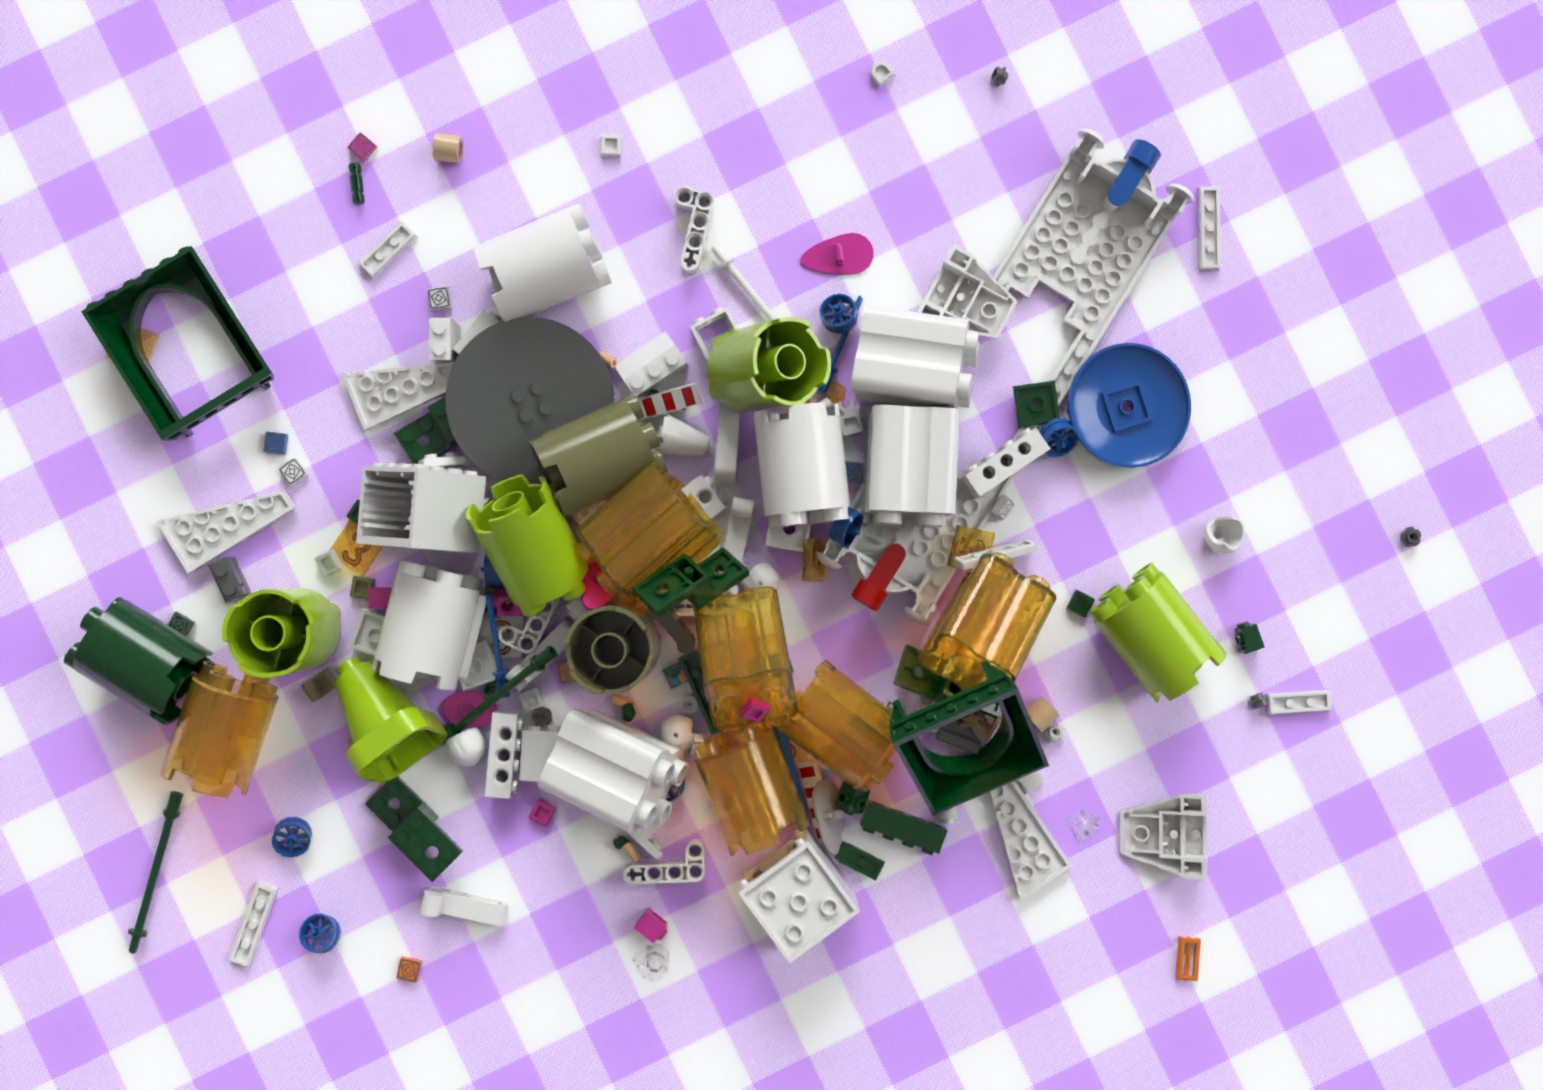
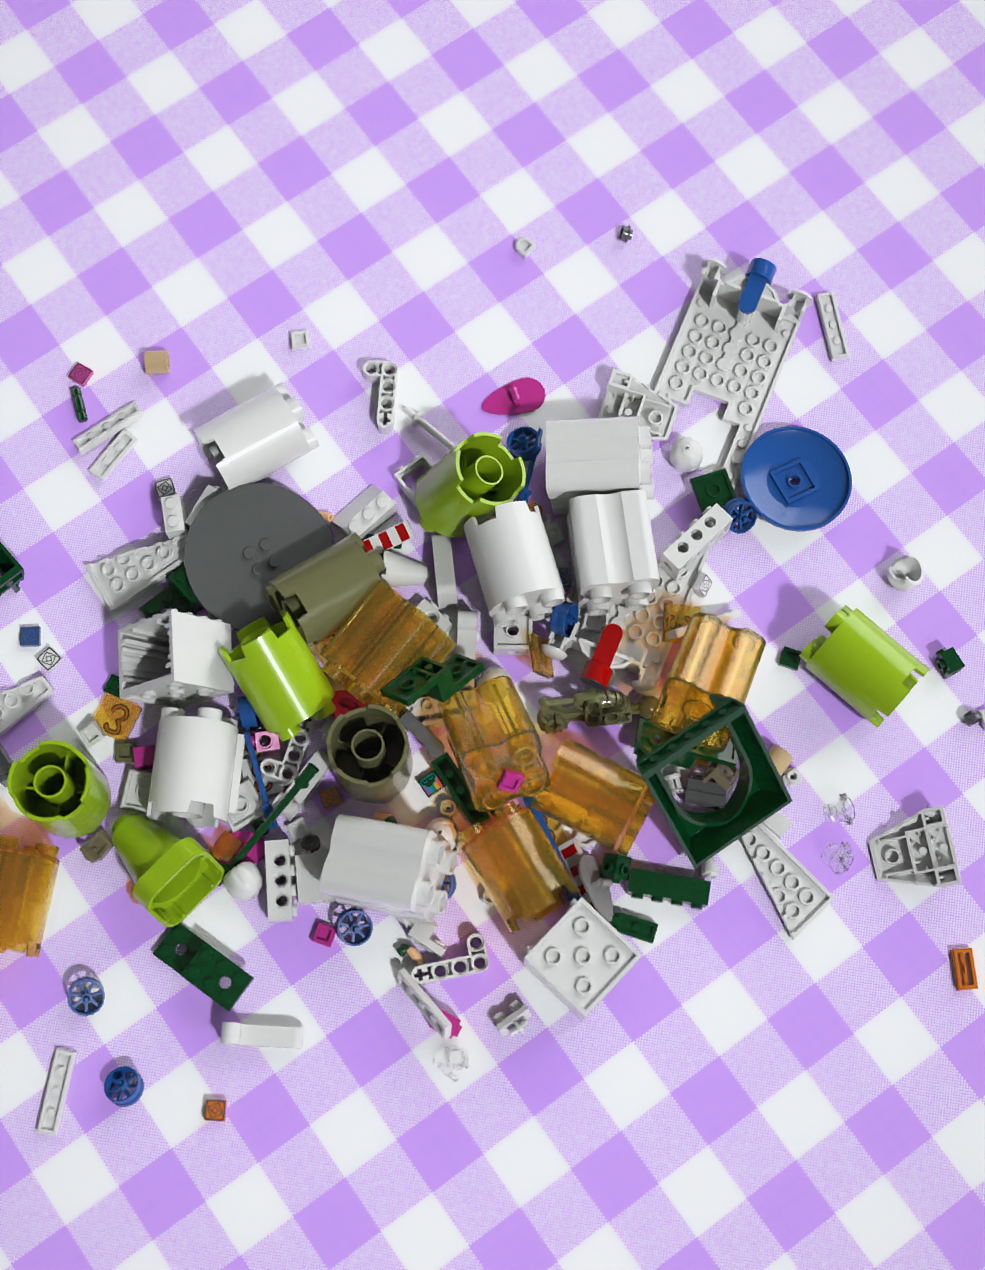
camera: 15 degrees left, 15 degrees down
(385, 216) = (108, 428): none -> white tile
(451, 707) = (225, 847): none -> clear yellow bracket
(572, 812) = (353, 927): none -> blue wheel
(631, 906) = (424, 1004): none -> white tile
(711, 936) = (515, 1022): none -> white hips
(861, 629) = (593, 708): none -> olive arm
(1014, 363) = (684, 459): none -> white piece
(1097, 778) = (840, 810): none -> clear piece

